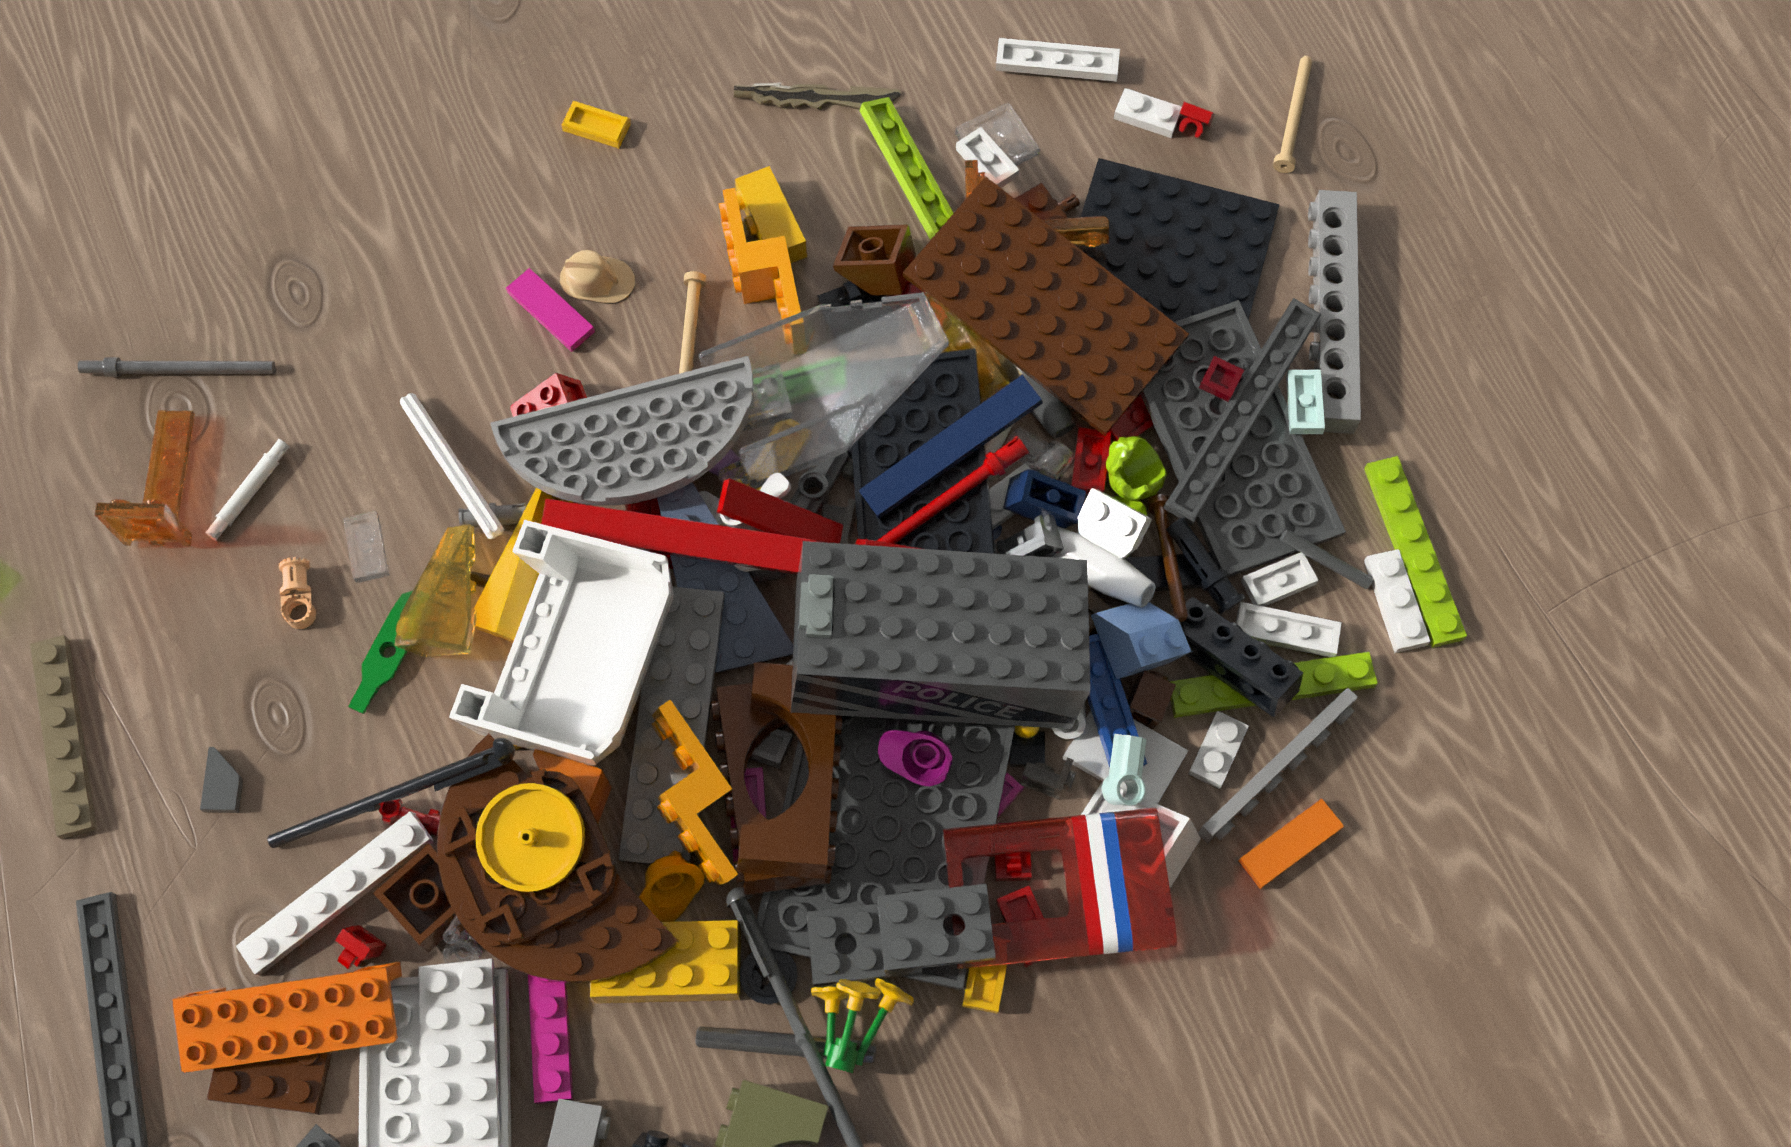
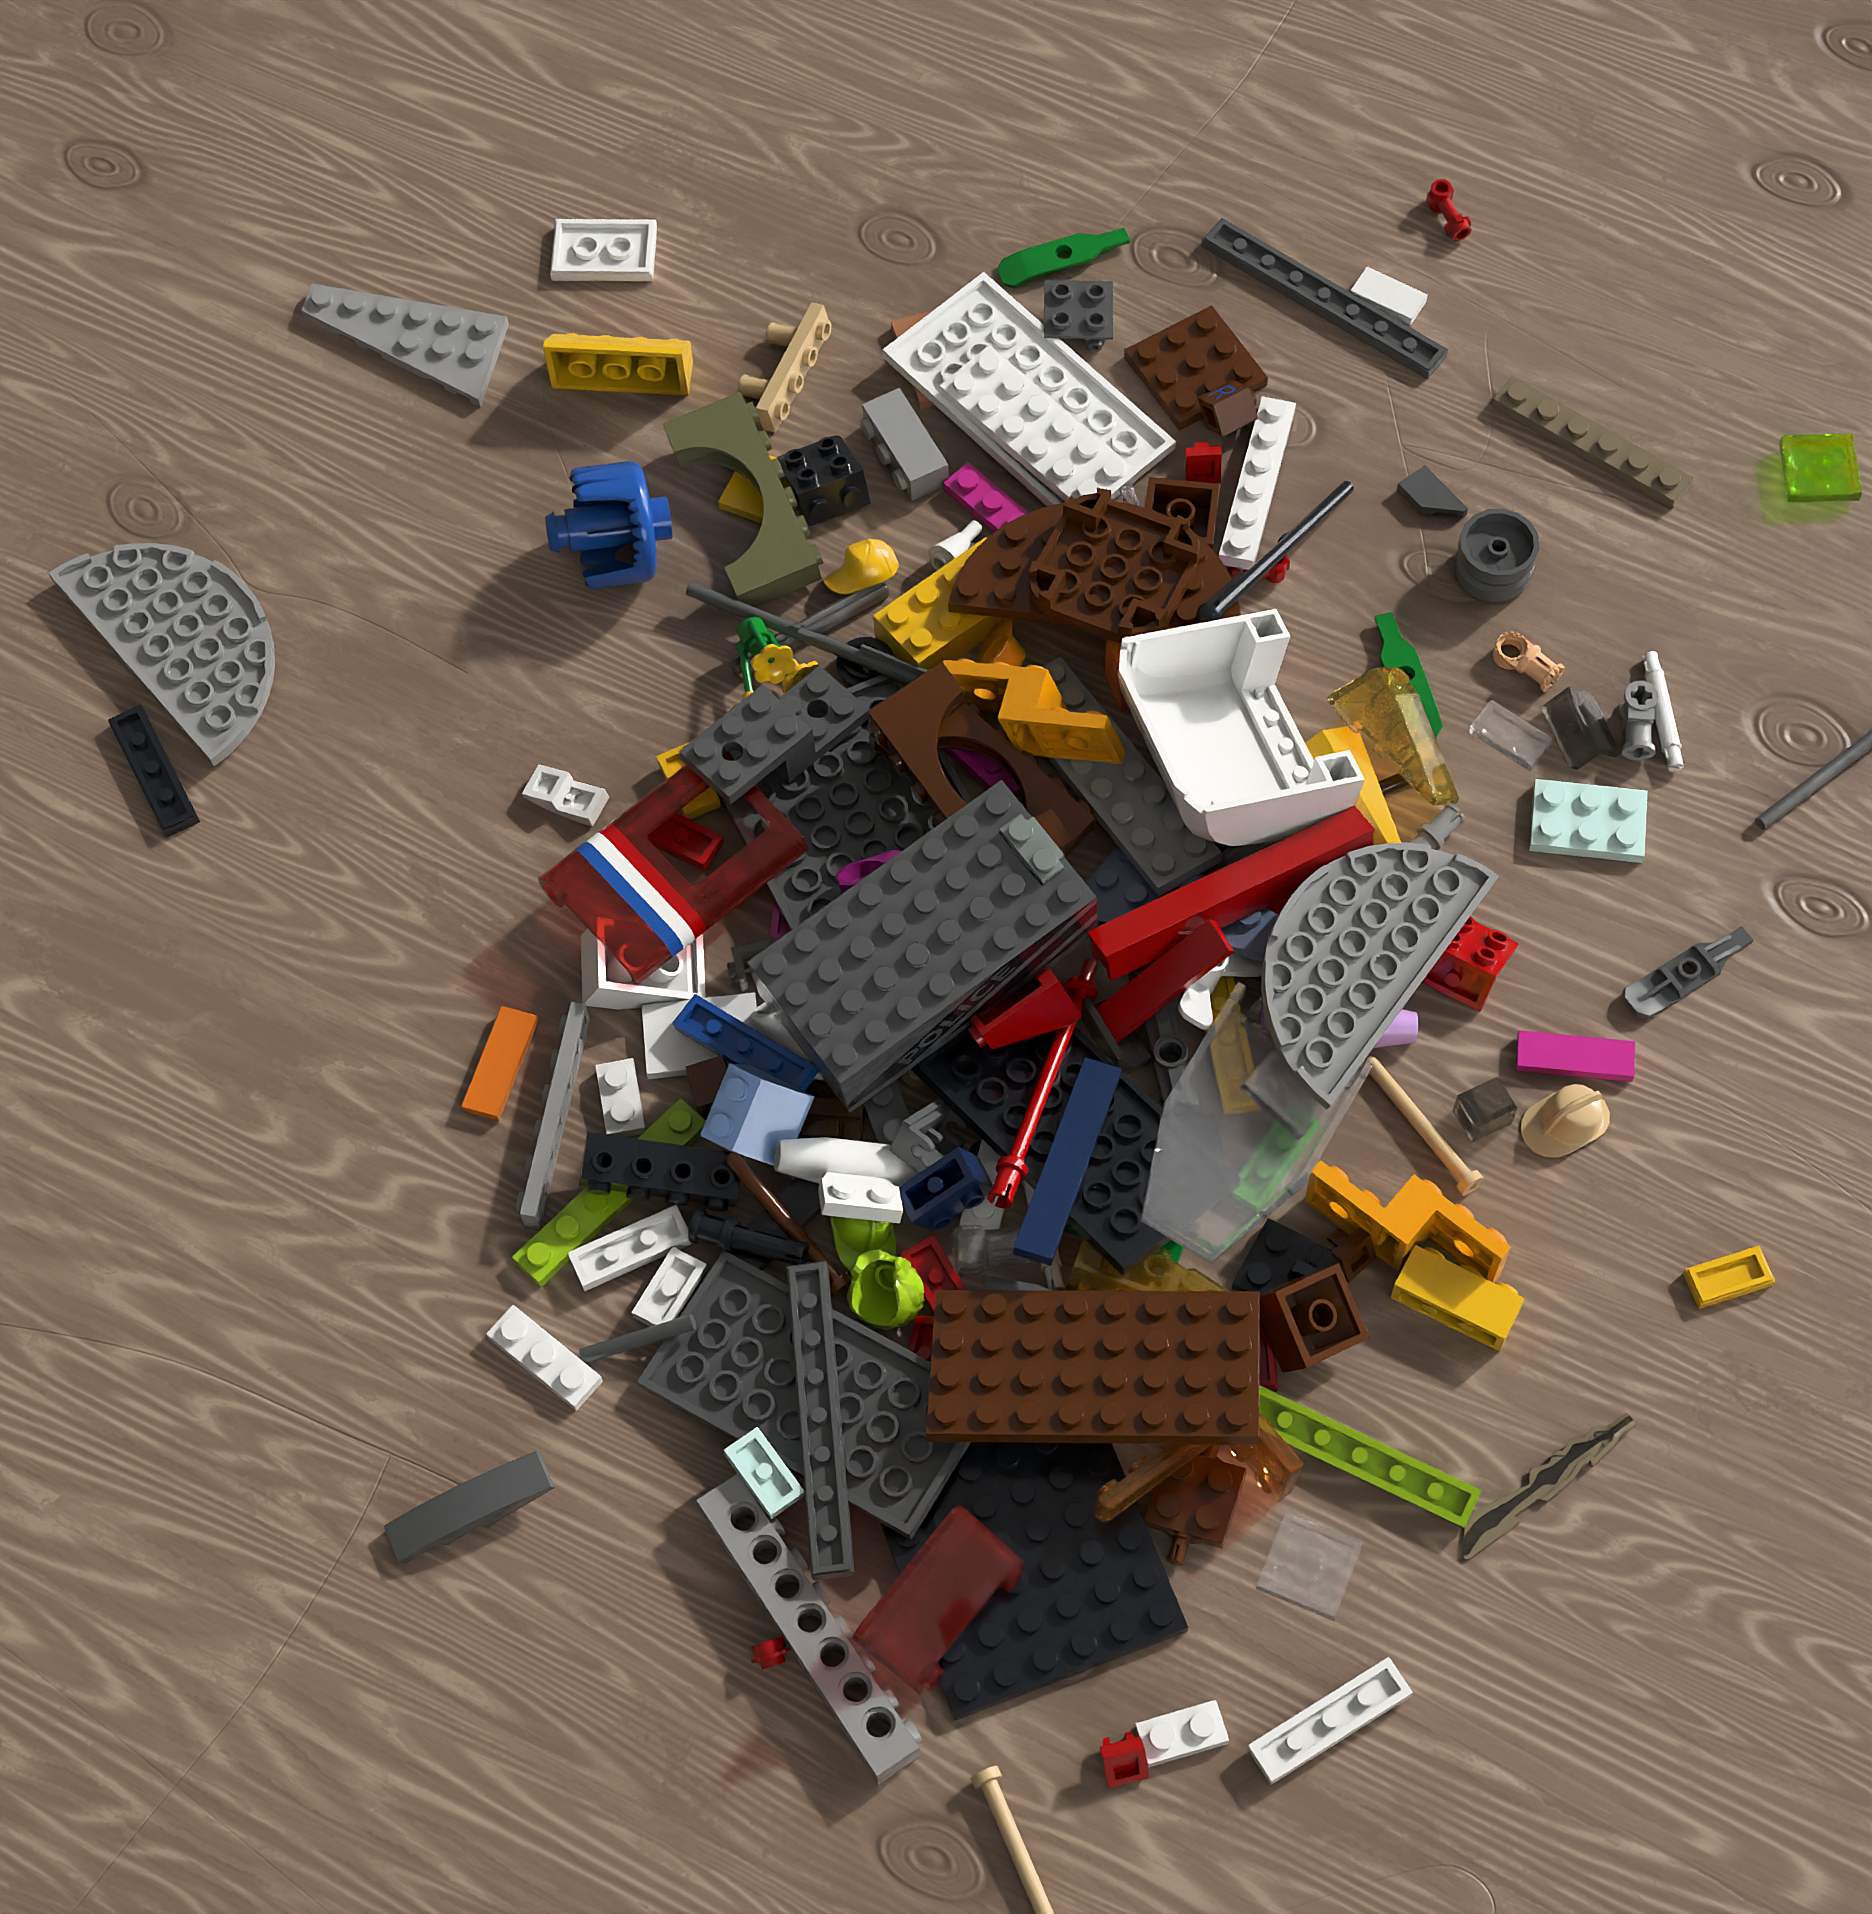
camera: 145 degrees right, 5 degrees down
(64, 993) = (1389, 295): none -> white tile
(158, 515) = (1693, 619): clear orange bracket -> none
(233, 682) = (1496, 555): none -> dark grey wheel
(271, 491) = (1637, 719): none -> light grey connector
(286, 1018) = (1198, 373): orange bracket -> none
(290, 967) = (1228, 407): none -> reddish brown brick
(315, 516) = (1579, 727): none -> clear smoke panel
(378, 452) = (1588, 820): none -> light aqua plate
(442, 312) = (1671, 983): none -> dark grey piece
(452, 466) = (1509, 843): white axle -> none
(530, 837) = (1122, 568): yellow piece -> none
(622, 1023) = (953, 546): none -> white cone
(644, 308) = (1484, 1109): none -> clear smoke panel
(704, 1063) = (863, 566): none -> yellow piece
(810, 287) = (1352, 1251): none -> reddish brown tile
(990, 157) = (1294, 1514): white plate -> none
(1091, 1040) = (564, 796): none -> white slope
(1125, 766) = (683, 991): light aqua piece -> none
(1221, 378) = (862, 1424): dark red plate -> none
(1299, 241) = (937, 1598): none -> clear red windscreen
(1370, 314) = (770, 1652): none -> red plate
(1418, 555) = (559, 1423): lime plate -> none
(1514, 528) = (468, 1506): none -> dark grey slope

